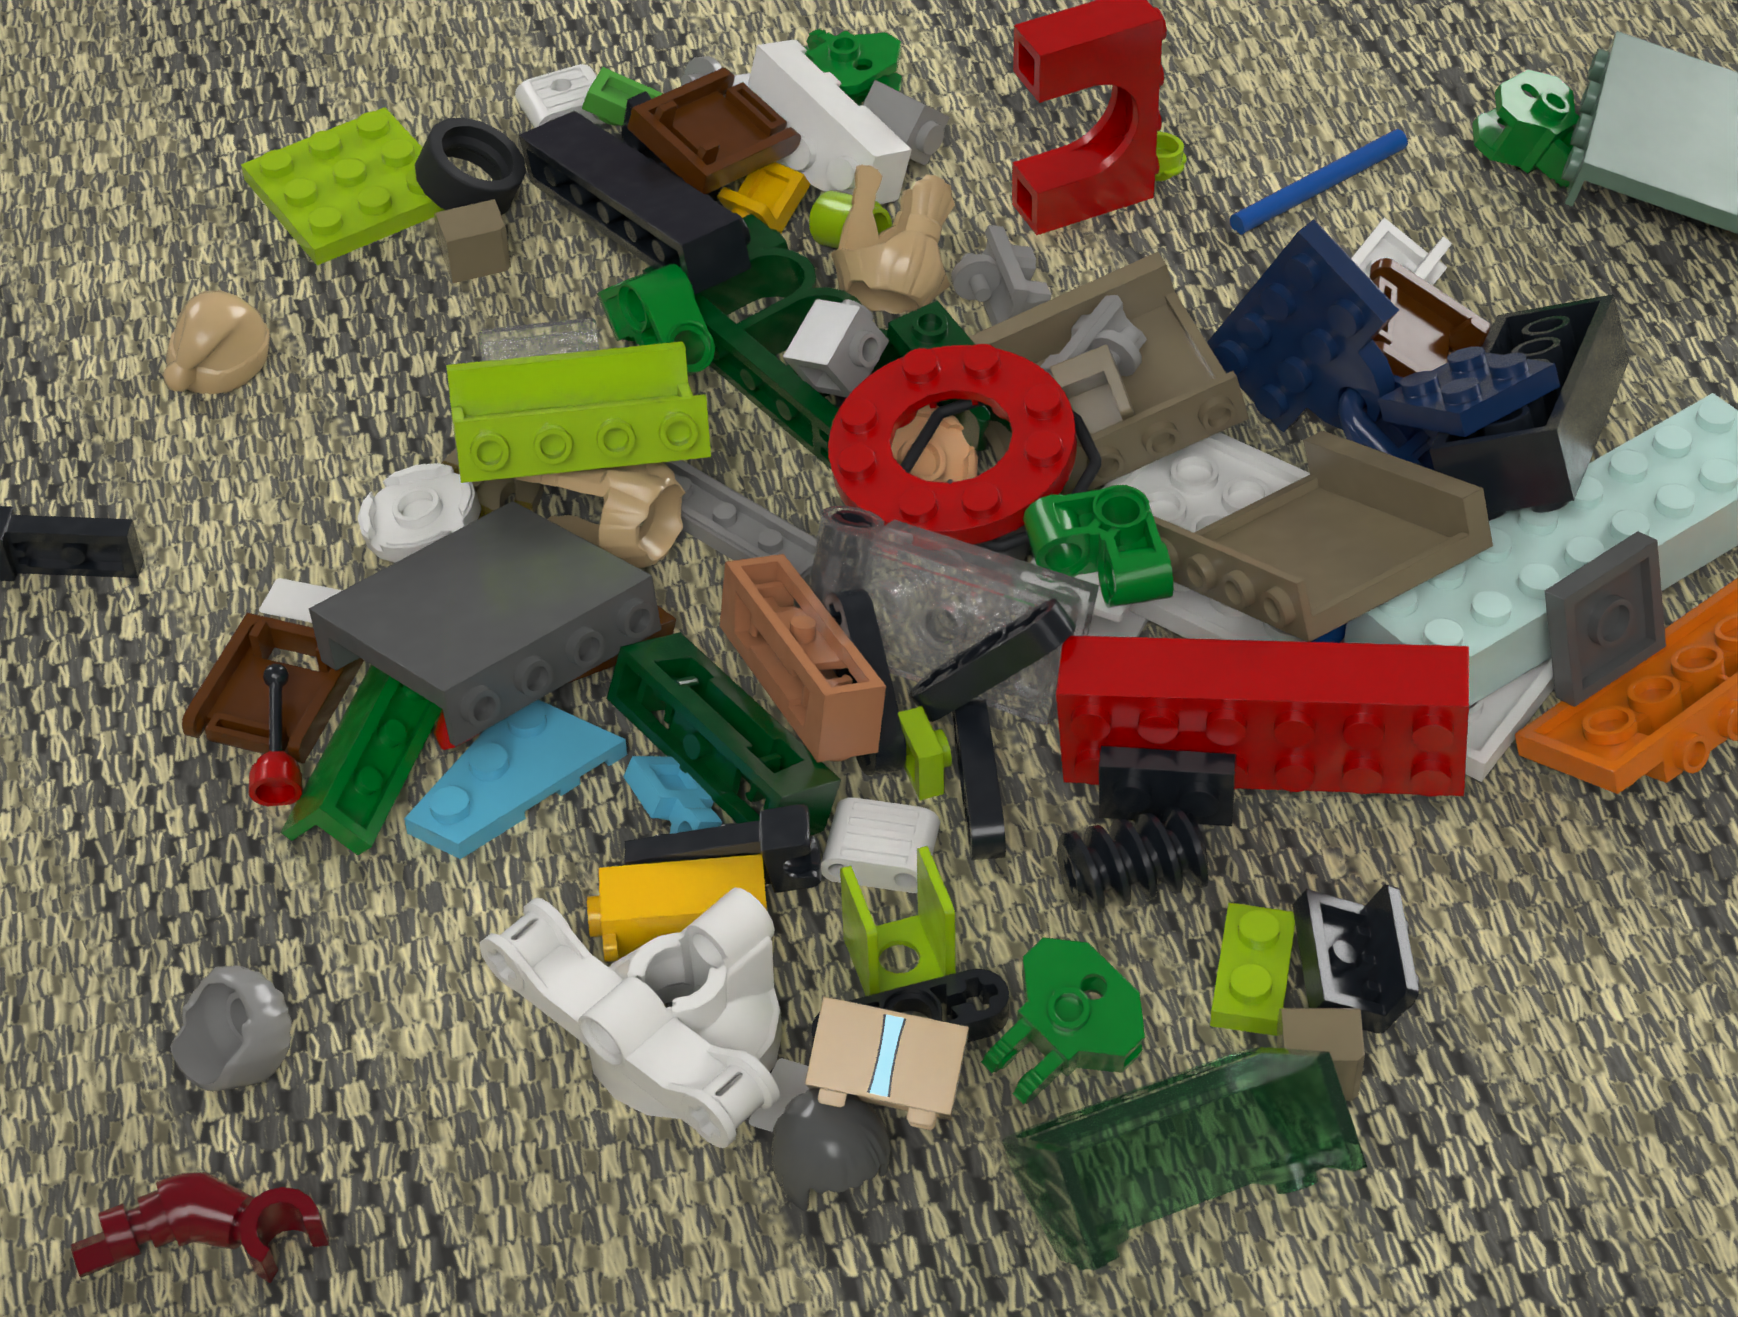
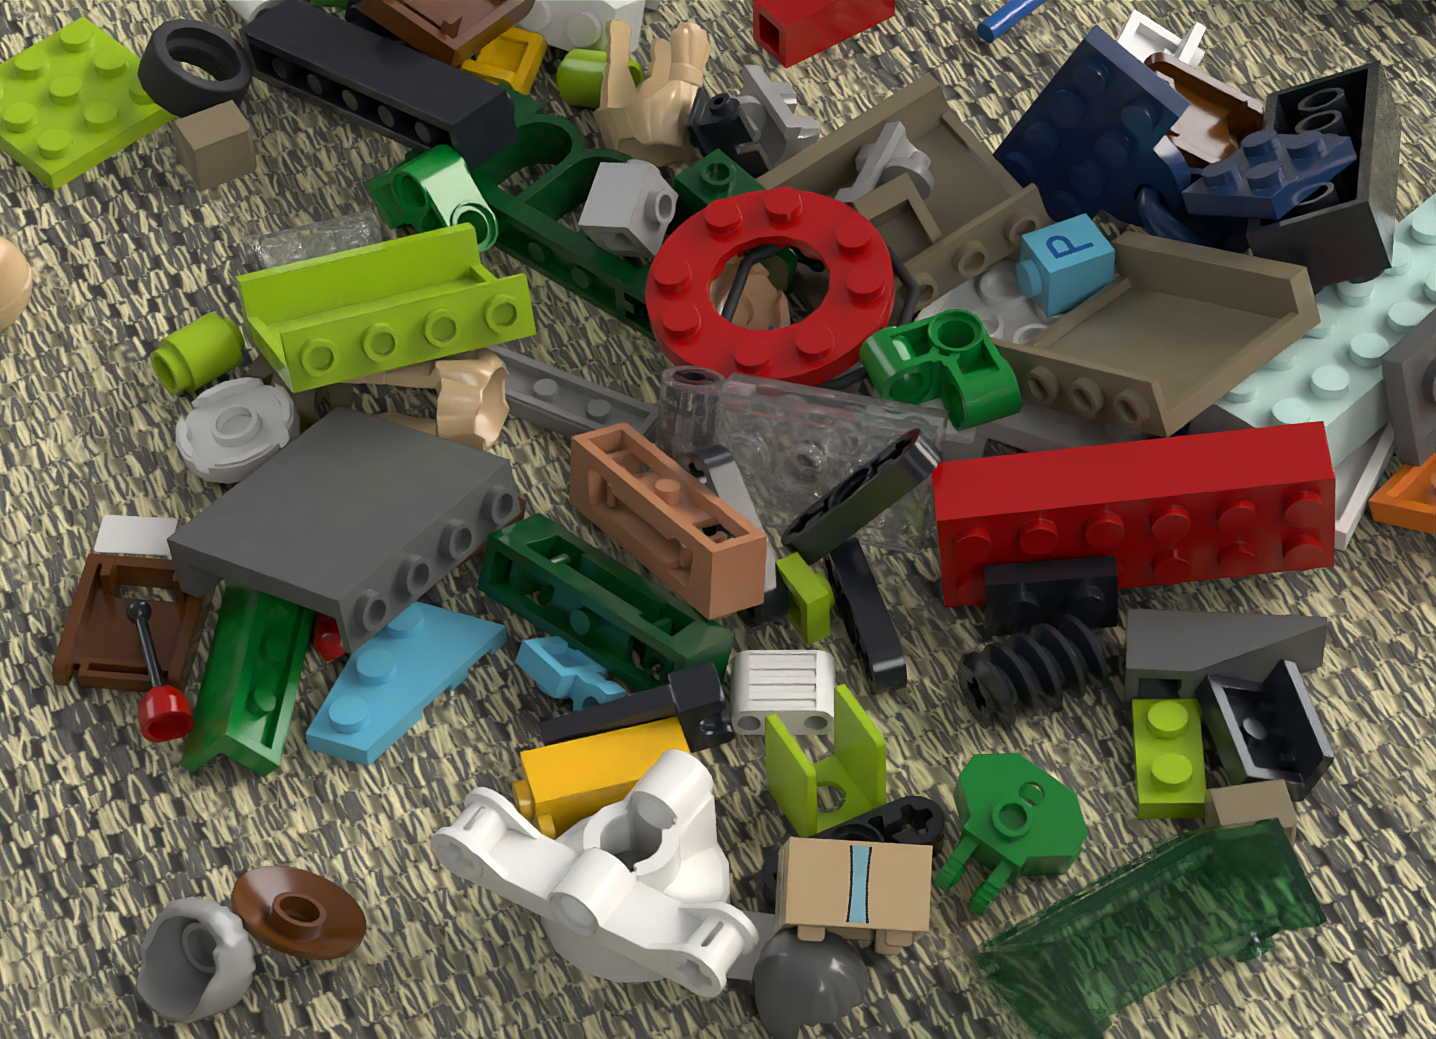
camera: 10 degrees left, 0 degrees up
(346, 996) = (298, 912): none -> reddish brown dish
(402, 435) = (198, 353): none -> lime brick
(947, 278) = (724, 125): none -> black hinge
(1254, 456) = (1064, 264): none -> medium azure brick
(1282, 857) = (1175, 649): none -> dark grey slope

